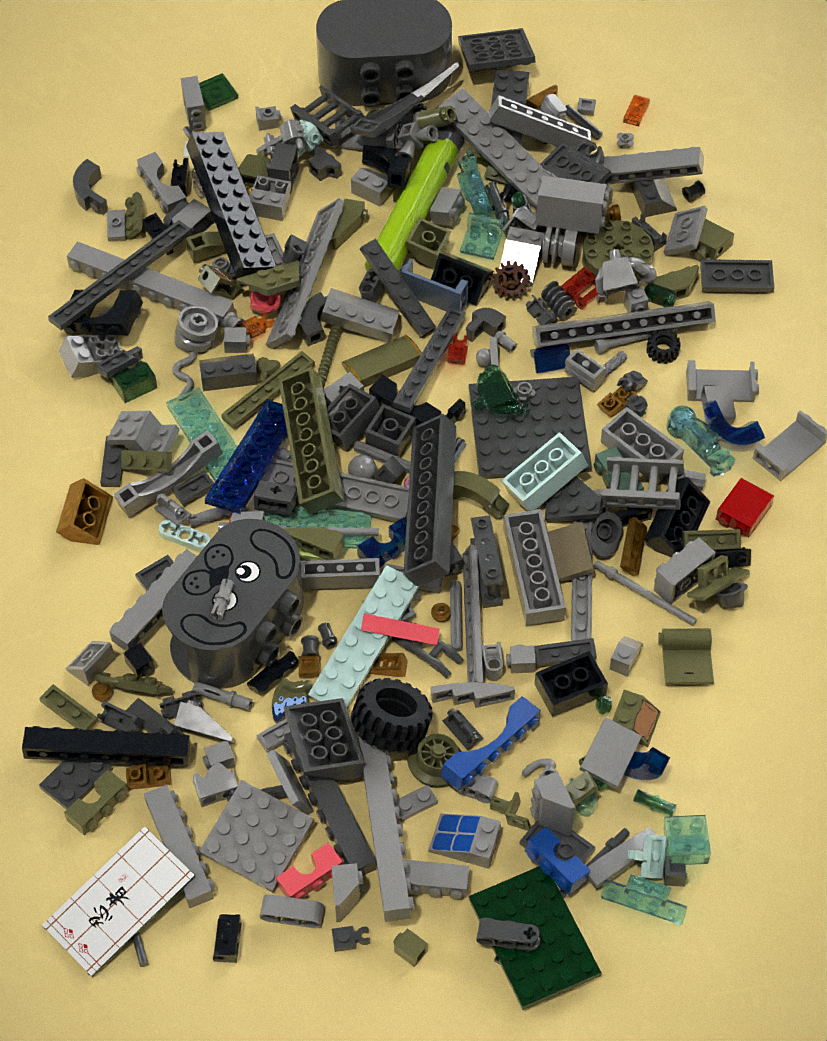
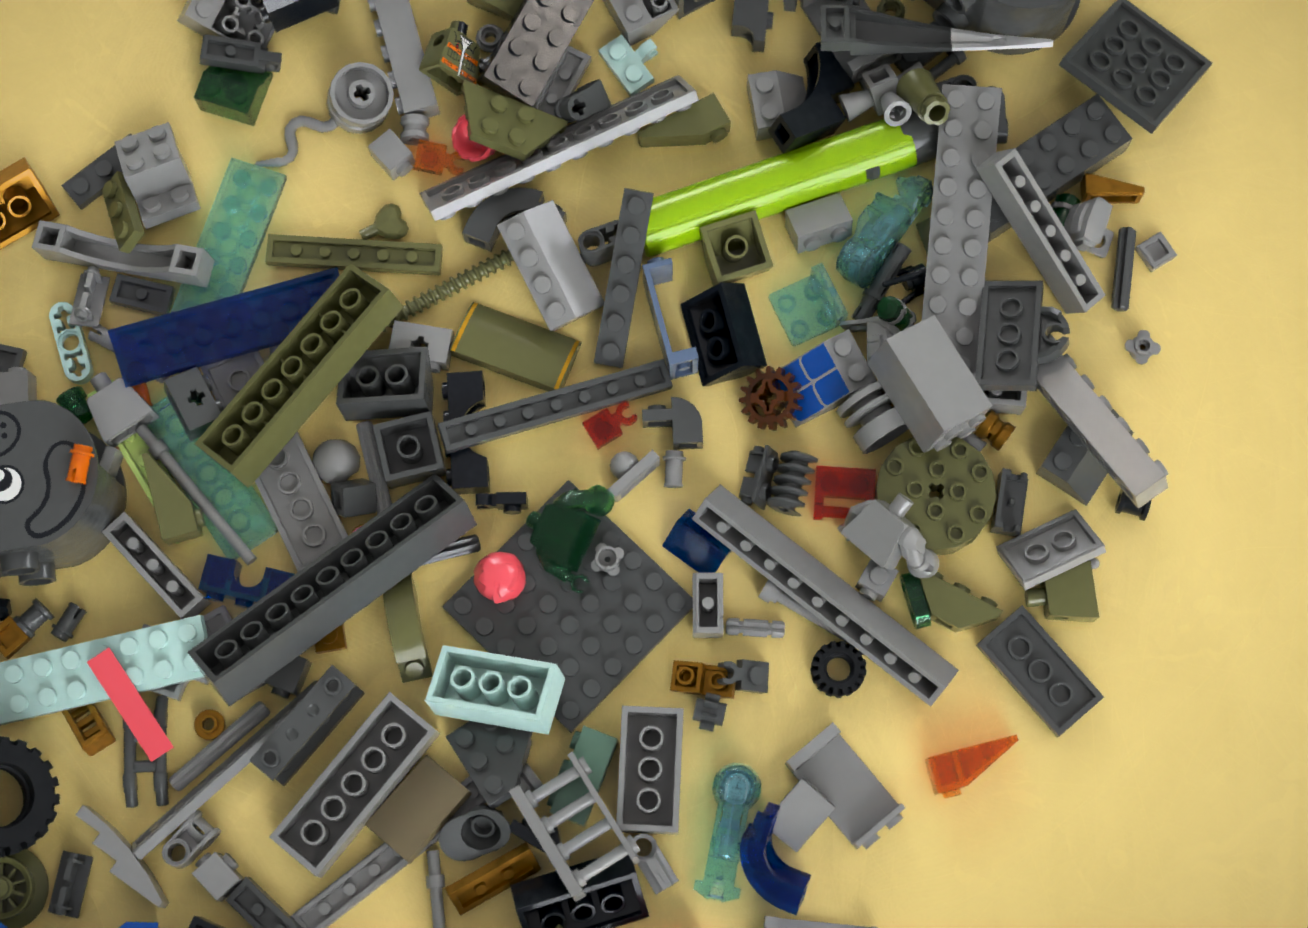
camera: 50 degrees right, 20 degrees up
(228, 372) = (341, 183): dark grey slope -> none
(273, 529) = (79, 463): none -> orange pin
(292, 224) = (629, 65): none -> light aqua plate
(490, 436) = (499, 576): none -> coral hair
(636, 110) = (1209, 320): clear orange plate -> none
(753, 334) = (960, 767): none -> clear orange slope

